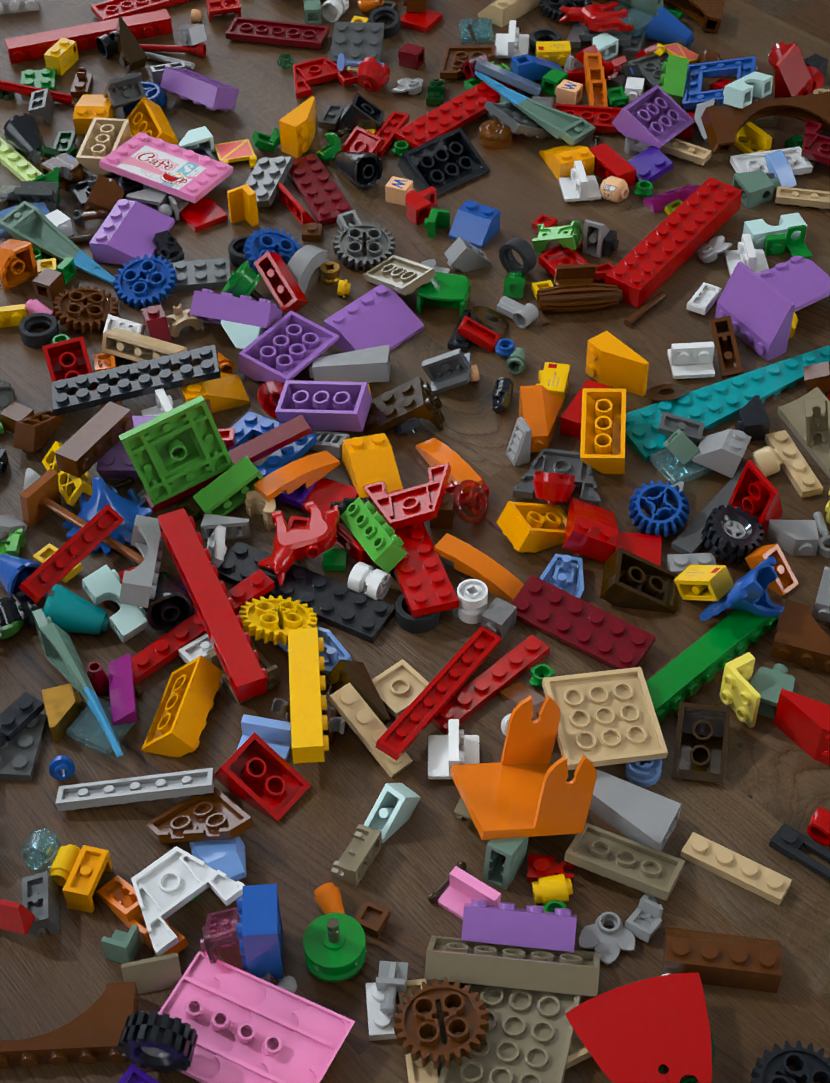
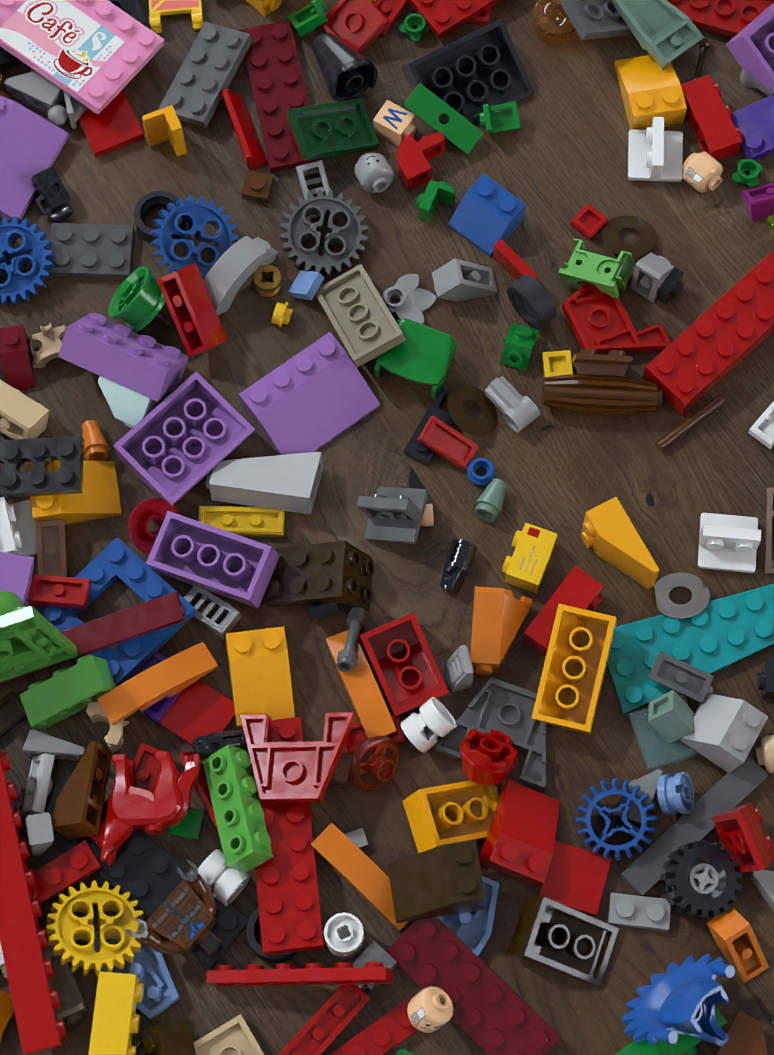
camera: 10 degrees right, 25 degrees up
(225, 562) = (39, 833): none -> light grey slope
(253, 542) = (82, 798): none -> reddish brown slope
(345, 601) = (182, 918): none -> reddish brown torso
(357, 271) = (306, 285): none -> medium blue tile
(358, 195) = (332, 129): none -> dark green plate
(391, 214) = (374, 172): none -> light grey head
(424, 176) = (456, 129): none -> green tile
(435, 444) = (347, 658): none -> dark grey bar
(444, 623) = (313, 974): none -> red plate
(470, 181) = (500, 118): none -> green bracket
(476, 443) = (403, 664): none -> red slope
(493, 243) = (511, 261): none -> red tile
(510, 470) = (438, 722): none -> white wheel
(538, 552) = (437, 882): none -> dark brown slope
(550, 629) = (430, 1009): none -> light nougat head
(698, 490) = (675, 794): none -> medium blue wheel
(704, 582) = (643, 961): yellow brick -> none

